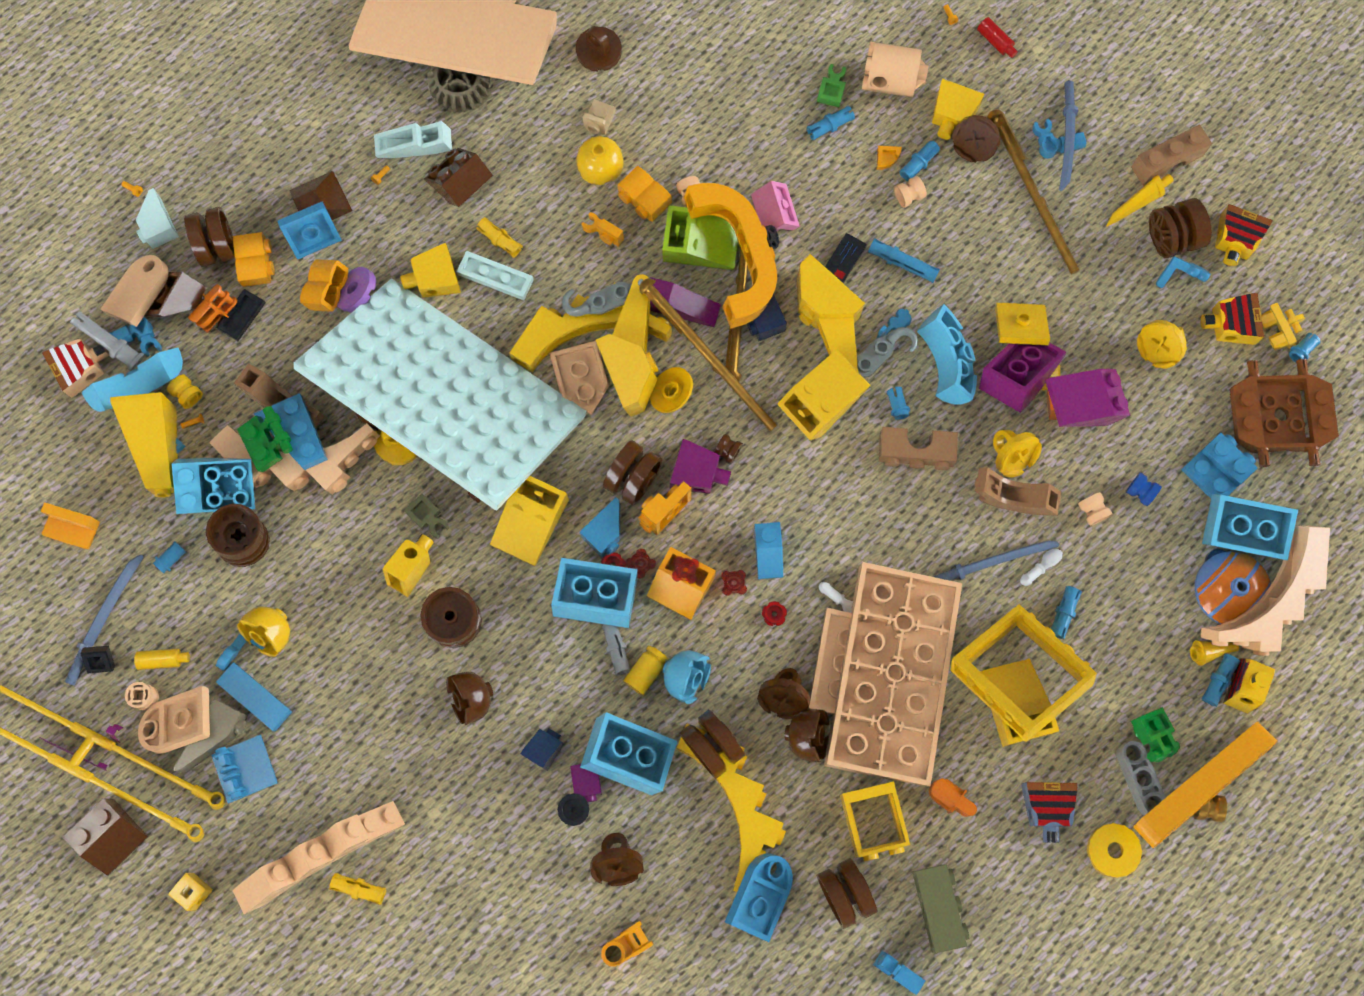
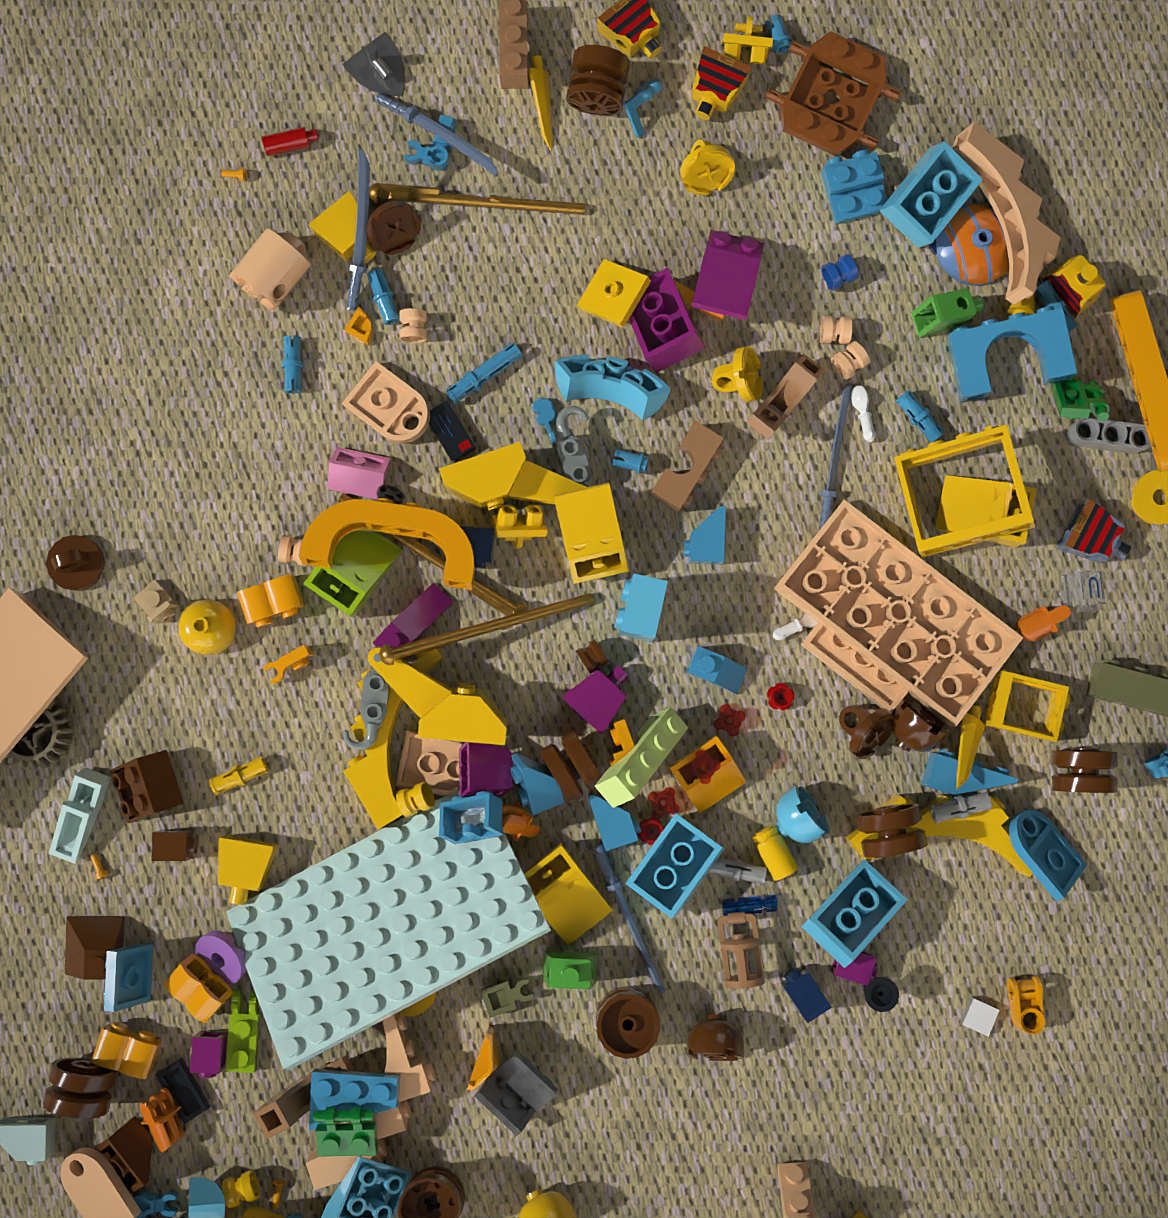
camera: 70 degrees left, 10 degrees up
(277, 317) = (208, 1053): none -> magenta brick
(301, 337) = (243, 1035): none -> lime hinge
(354, 558) = (516, 1092): none -> flat silver bracket
(370, 524) = (487, 1060): none -> light orange slope
(408, 565) = (552, 1052): yellow torso -> none
(423, 216) = (173, 845): none -> reddish brown brick
(472, 554) = (570, 969): none -> bright green torso
(495, 275) = (280, 801): light aqua plate -> none
(546, 369) = (415, 799): none -> yellow wheel
(553, 411) = (471, 818): none -> dark azure window
(553, 674) = (740, 944): none -> medium nougat piece
(555, 556) = (614, 884): none -> sand blue sword
(567, 448) = (518, 822): none -> orange arm
(592, 673) = (750, 904): none -> clear blue axle
(595, 912) = (979, 1016): none -> white tile
(596, 411) = (484, 769): none -> magenta torso
(601, 455) = (536, 784): none -> dark azure slope
(616, 865) = (949, 975): reddish brown tile -> none
(668, 516) = (632, 772): none -> yellowish green arch
(671, 390) = (491, 681): yellow dish -> none
(761, 799) = (960, 807): none -> light grey pin
(785, 789) = (942, 775): none -> dark azure slope
(786, 460) = (642, 607): none -> medium azure brick
(798, 343) = (519, 527): none -> yellow hips
(823, 783) = (970, 737): none -> yellow bar
(832, 87) = (255, 341): bright green plate -> none
(838, 202) = (387, 404): none -> light nougat tile
(869, 491) = (707, 541): none -> dark azure slope
(930, 129) = (357, 266): none -> sand blue sword
(998, 819) = (1083, 590): none -> clear brick
(1077, 532) = (850, 360): none -> light nougat wheel
(1092, 73) = (378, 67): none -> flat silver shield
(1149, 624) = (1043, 331): none -> dark azure arch
(1163, 588) = (946, 311): none -> bright green torso

